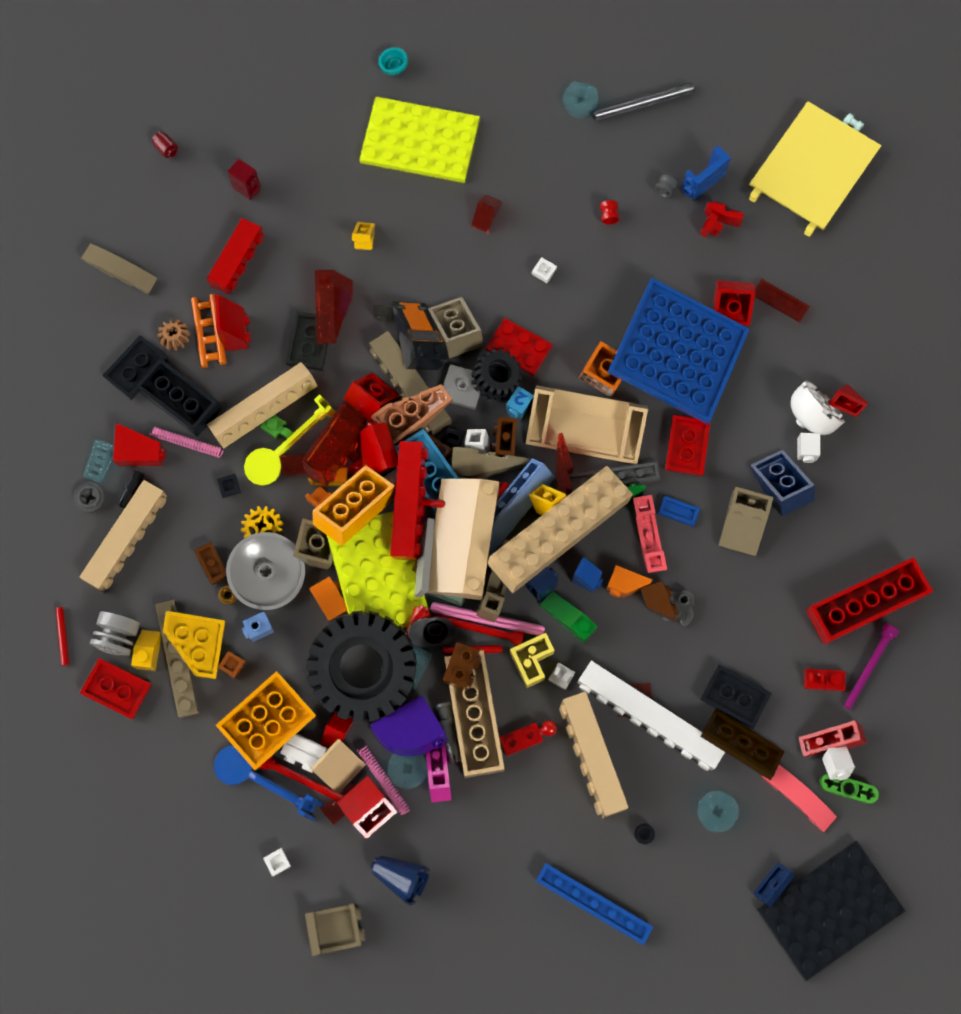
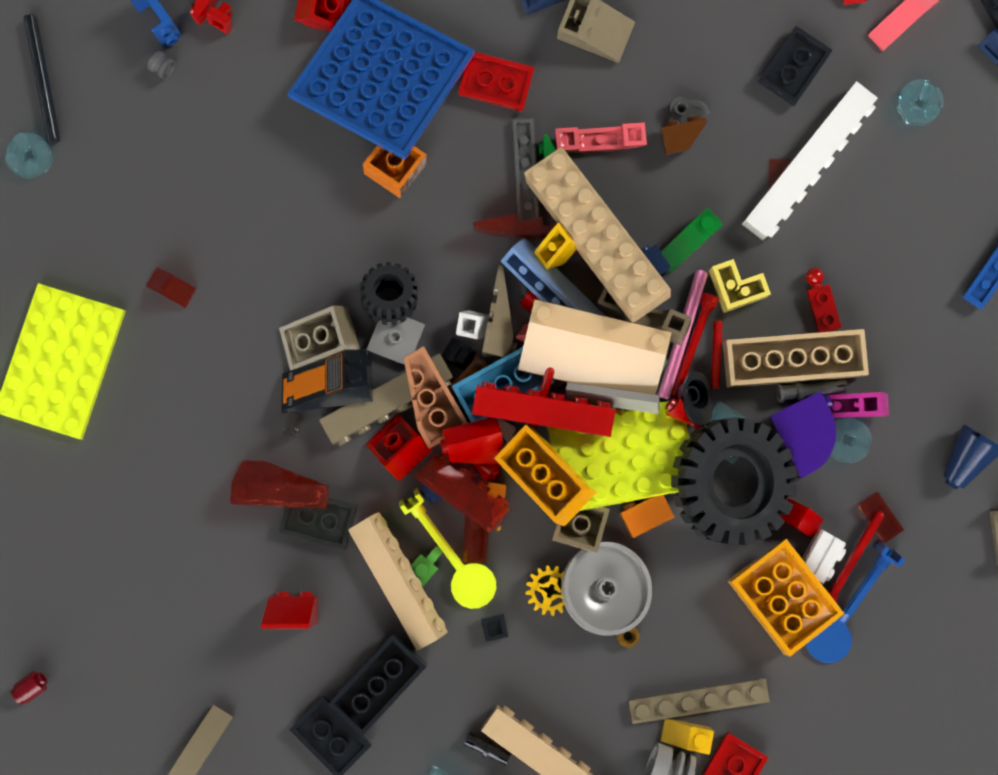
camera: 85 degrees left, 10 degrees up
(136, 449) = (437, 740): red slope -> none
(171, 329) = (301, 685): medium nougat gear -> none
(179, 438) = (435, 680): bright pink piece -> none
(196, 641) = (683, 675): yellow plate -> none
(201, 340) = (280, 654): orange bar -> none
(211, 563) = (588, 654): reddish brown plate -> none
(231, 664) = (712, 635): dark orange plate -> none
(235, 256) = (195, 604): red brick -> none
(244, 179) = (93, 585): dark red brick -> none
(257, 627) = (671, 602): medium blue brick -> none
(277, 862) = (941, 595): white plate -> none
(317, 496) = (521, 517): orange panel -> none
(338, 766) = (842, 518): tan tile -> none
(363, 235) = (183, 440): yellow slope -> none
(367, 807) = (892, 488): red slope -> none
(381, 781) = (875, 462): bright pink piece -> none
(461, 666) = (748, 365): reddish brown brick -> none
(505, 435) = (470, 291): reddish brown brick -> none
(519, 403) = (425, 271): dark azure brick -> none
(523, 344) = (349, 262): red plate -> none
(544, 270) = (256, 224): white plate -> none
(561, 676) = (755, 256): white tile -> none
(587, 576) = (645, 213): blue slope -> none
(588, 423) = (458, 192): tan slope -> none
(593, 754) = (854, 228): tan brick -> none
(609, 210) = (189, 136): red wheel -> none
(626, 582) = (655, 171): orange slope -> none
(644, 834) = (938, 185): black plate -> none
(678, 511) = (573, 102): blue tile -> none
(742, 744) = (851, 64): dark brown tile -> none

